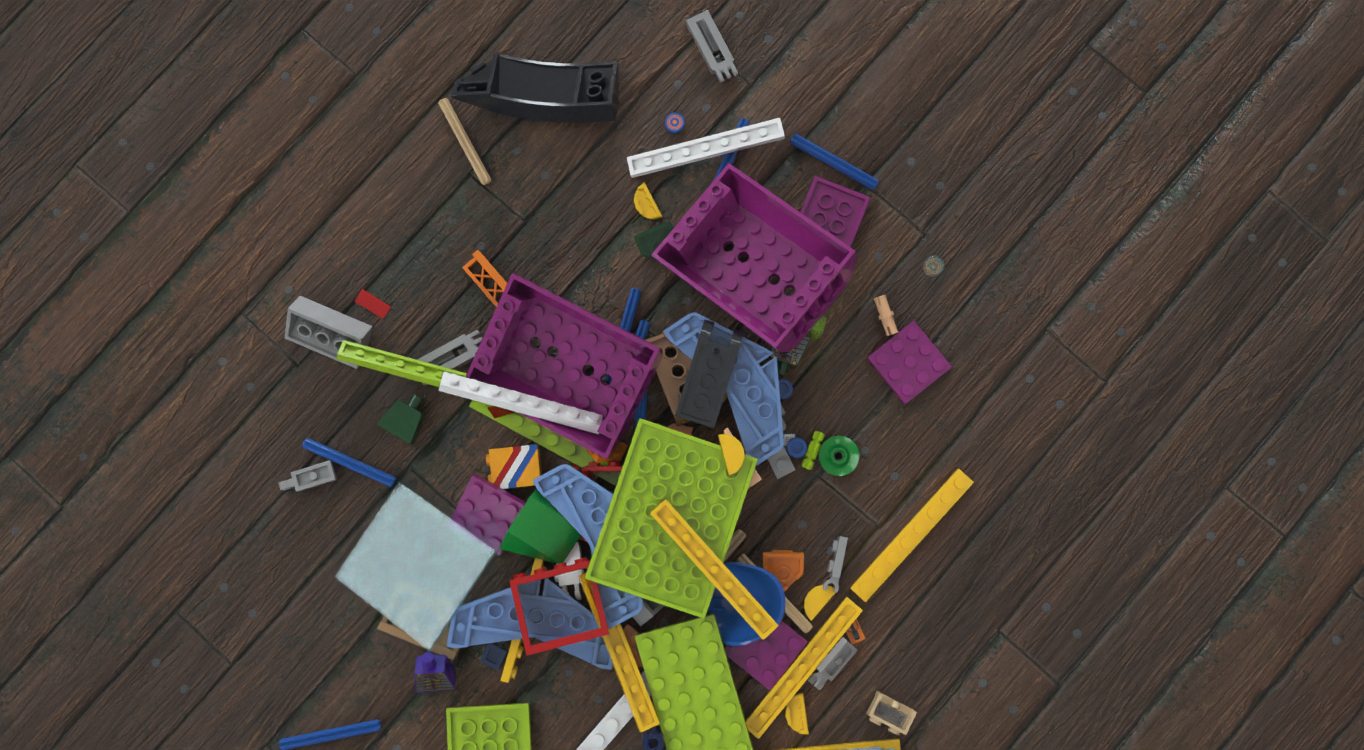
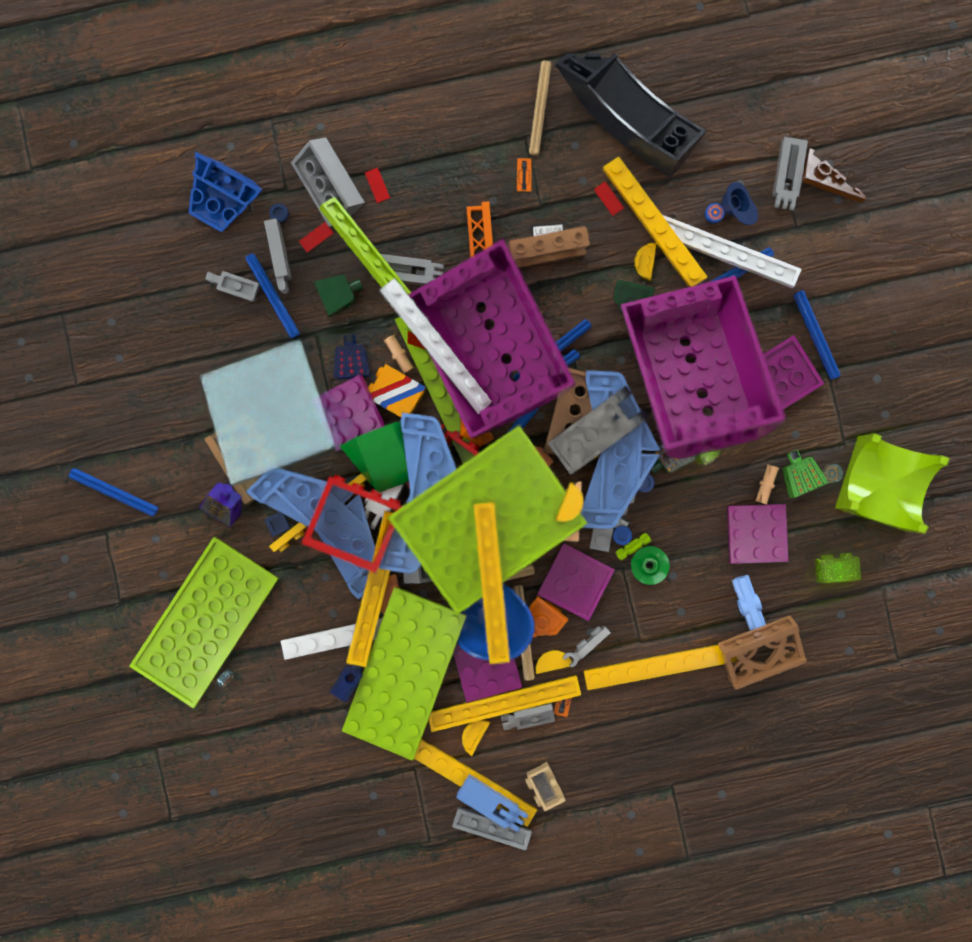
camera: 30 degrees right, 5 degrees up
(241, 407) = (219, 192): none -> blue wedge
(305, 388) = (279, 212): none -> dark blue tile
(329, 423) = (278, 254): none -> light grey hinge
(351, 385) = (316, 237): none -> red sticker
(456, 468) = (351, 360): none -> clear blue torso
(491, 205) = (524, 174): none -> orange sticker
(493, 433) = (398, 354): none -> light nougat pin
(545, 238) = (546, 228): none -> white sticker
(556, 251) = (549, 247): none -> medium nougat fence
(577, 174) = (608, 198): none -> red sticker
(630, 167) = (654, 223): none -> yellow plate
(689, 101) = (739, 204): none -> dark blue piece
(742, 29) = (827, 178): none -> reddish brown wing
(786, 516) = (575, 582): none -> magenta plate
(909, 286) = (802, 475): none -> bright green torso
(947, 427) = (748, 602): none -> light blue piece
(970, 456) = (751, 640): none -> medium nougat fence
(985, 241) = (888, 483): none -> lime piece
(998, 342) = (837, 569): none -> clear neon green brick

